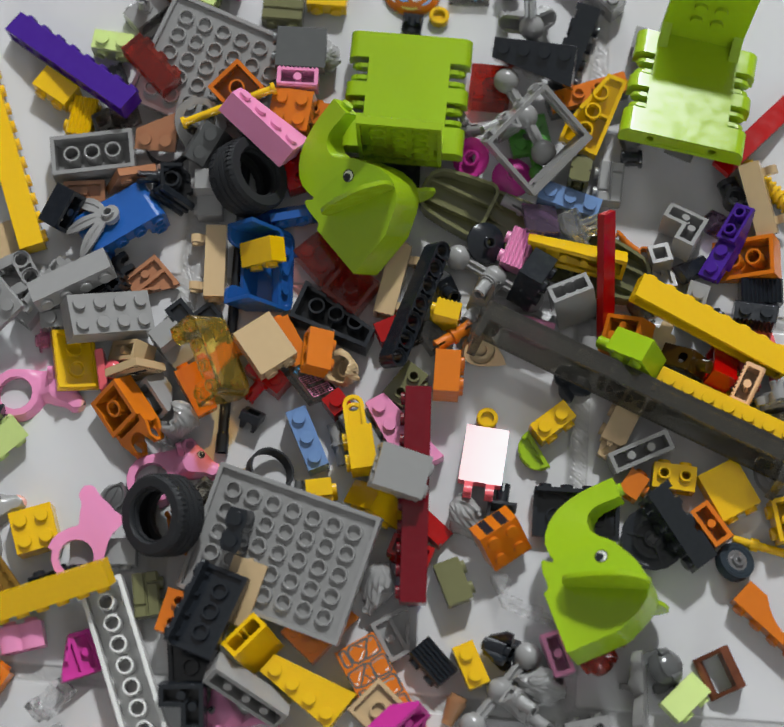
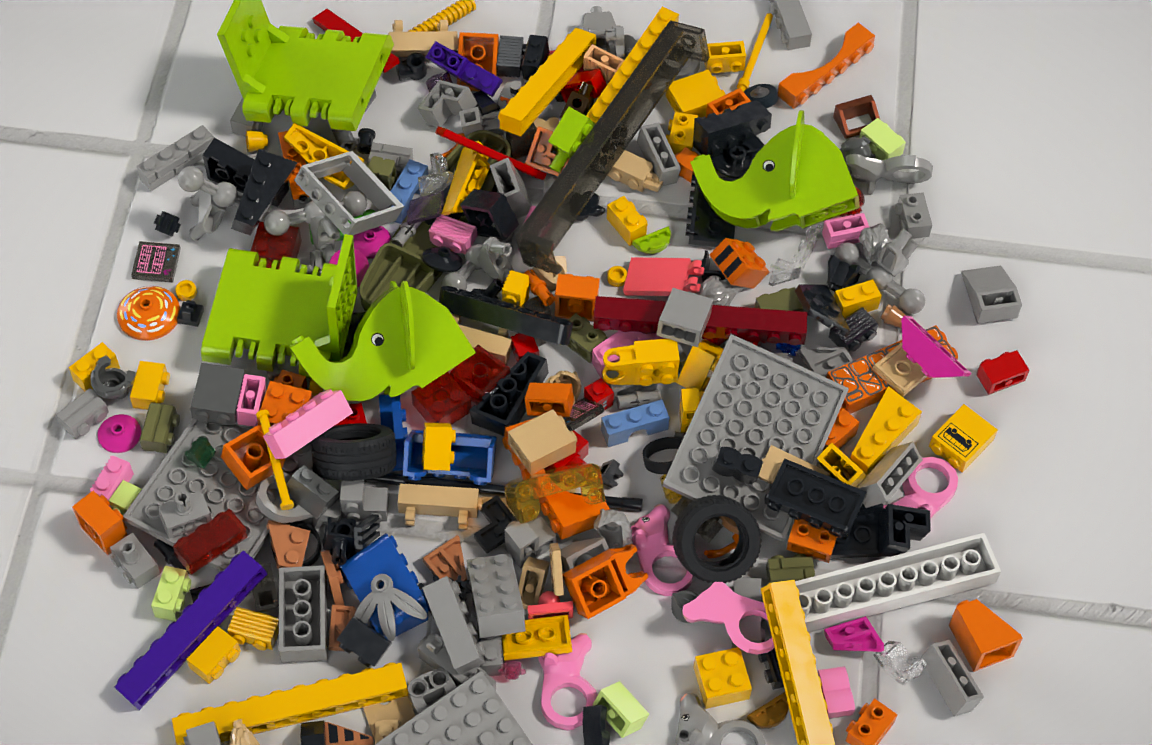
camera: 90 degrees left, 15 degrees down
(176, 39) = (184, 513): none -> light grey brick
(242, 45) = (200, 452): none -> clear green tile
(449, 624) = (822, 306): none -> black wing
(619, 54) = (256, 140): none -> yellow hat

